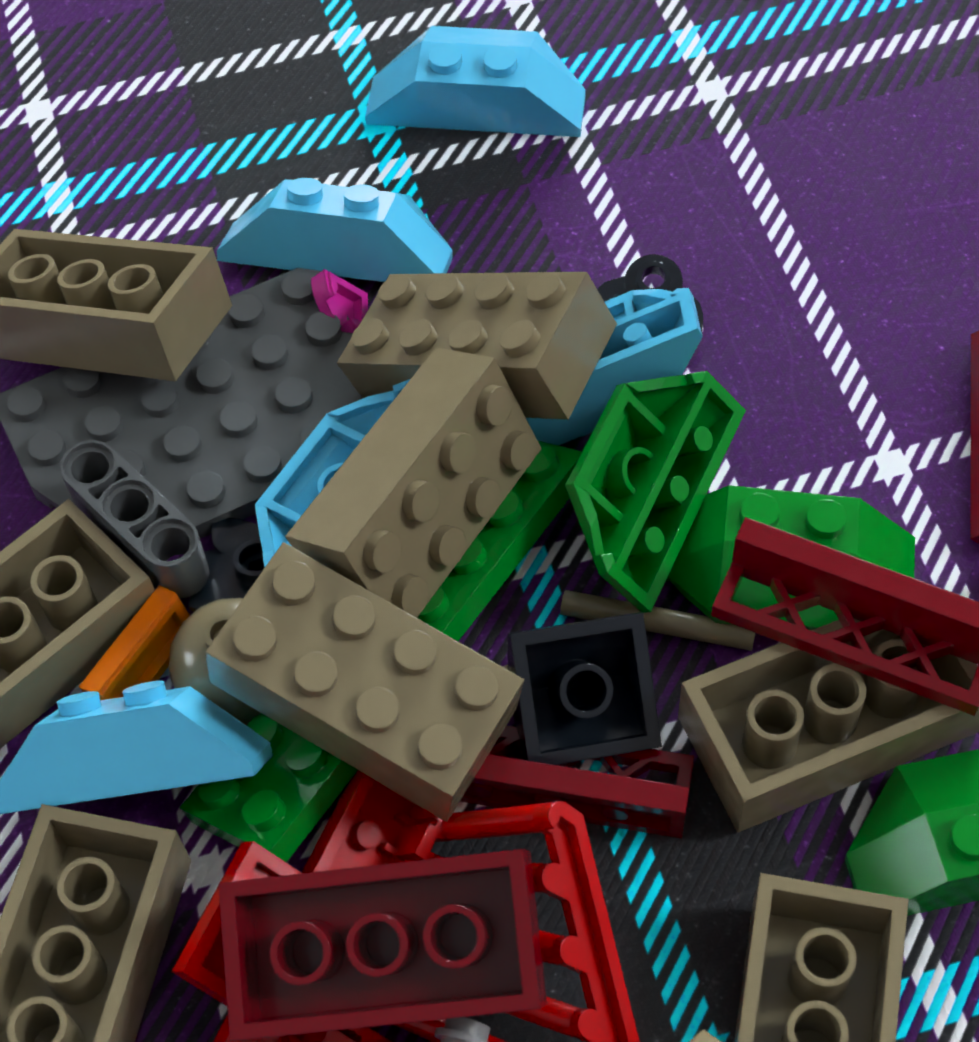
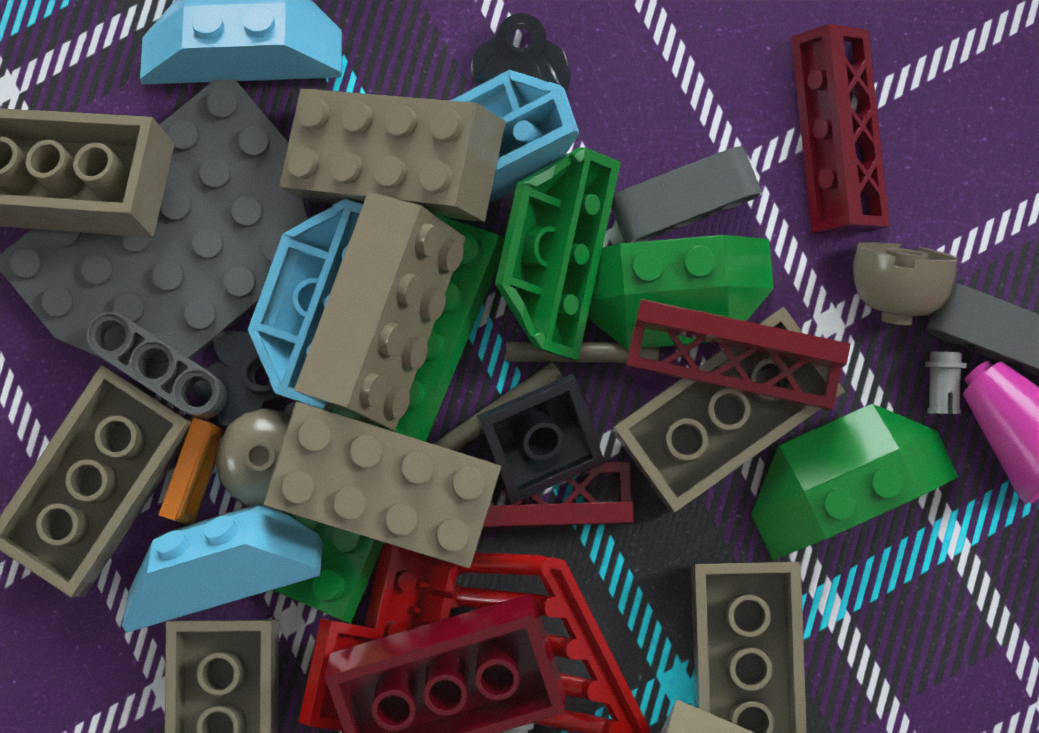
camera: 10 degrees left, 25 degrees up
(339, 298) = (262, 108): dark pink tile -> none
(838, 459) = (685, 195): none -> dark grey beam

